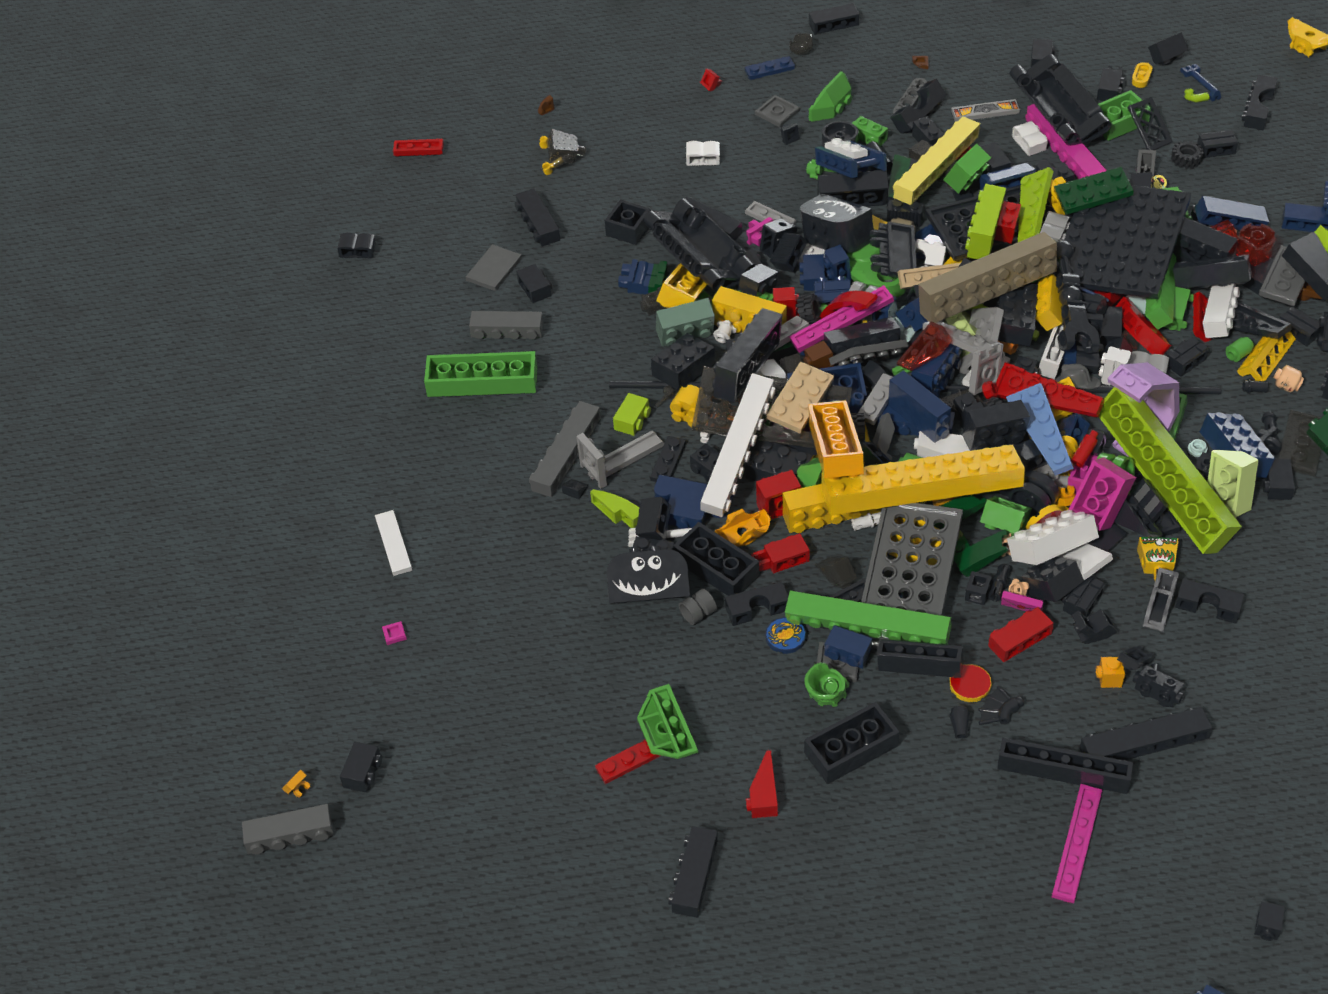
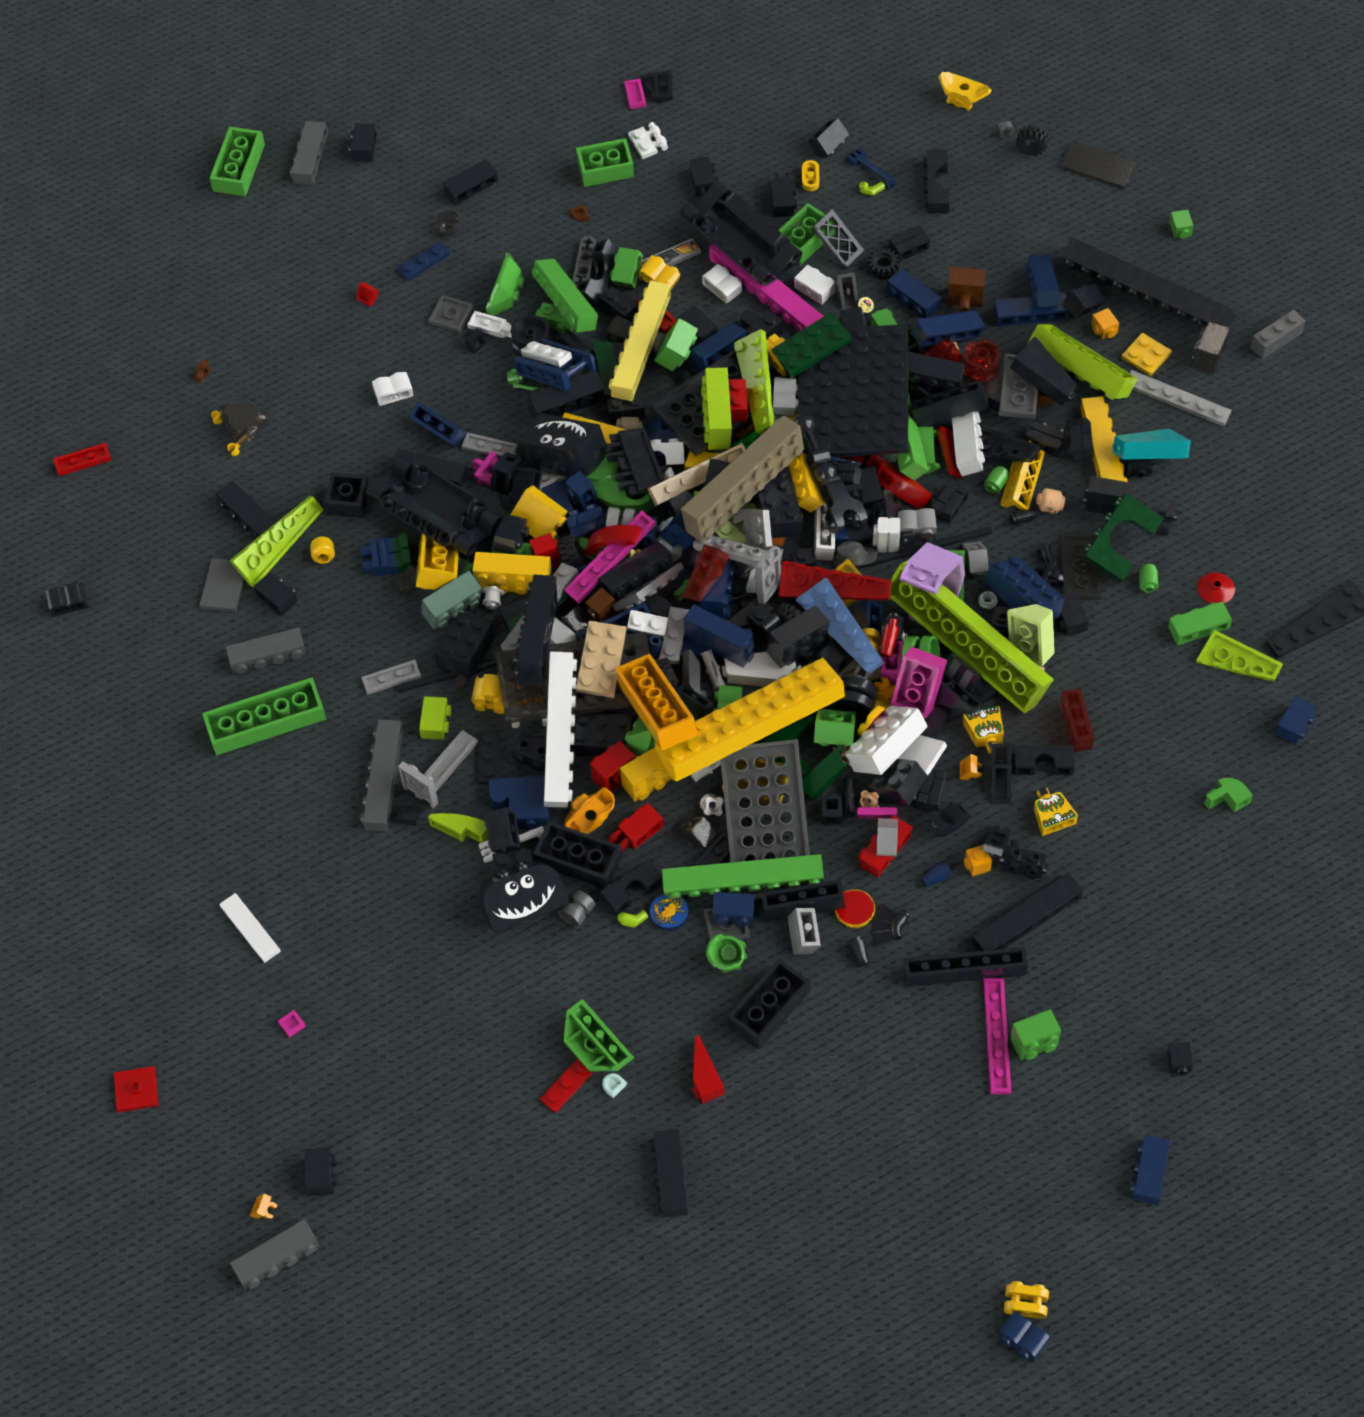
camera: 20 degrees left, 10 degrees up
(232, 648) = (136, 1089): none -> red plate
(551, 243) = (269, 547): none -> lime wing
(589, 259) = (322, 550): none -> yellow head
(607, 373) = (391, 677): none -> light grey tile
(671, 774) = (613, 1084): none -> light aqua tile
(730, 187) = (437, 424): none -> dark blue brick
(747, 633) = (632, 920): none -> lime arm
(792, 270) = (541, 512): none -> yellow brick
(807, 124) = (490, 324): none -> white hinge
(857, 381) = (647, 623): none -> white plate
(864, 557) = (715, 807): none -> white brick
(882, 113) = (565, 295): none -> bright green brick
(905, 436) = (712, 668): none -> light grey pin
(910, 687) = (804, 931): none -> light grey brick
(946, 106) = (626, 267): none -> bright green brick
(957, 26) = (605, 162): none -> bright green brick
(973, 111) = (658, 271): none -> yellow brick
(989, 390) = (777, 596): red tile -> none
(998, 23) = (643, 142): none -> white plate
(1023, 624) = (887, 837): none -> light grey slope
(1064, 674) = (937, 874): none -> dark blue cone
(1115, 155) = (814, 284): none -> white brick
(1117, 850) = (1035, 1035): none -> bright green brick
(1130, 588) = (969, 768): none -> light orange tile
(1197, 409) = (976, 557): none -> light grey slope
(1204, 650) = (1053, 812): none -> torso
(1207, 181) = (913, 294): none -> dark blue brick
(1255, 572) = (1077, 720): none -> clear red brick
(1260, 186) = (966, 288): none -> reddish brown brick

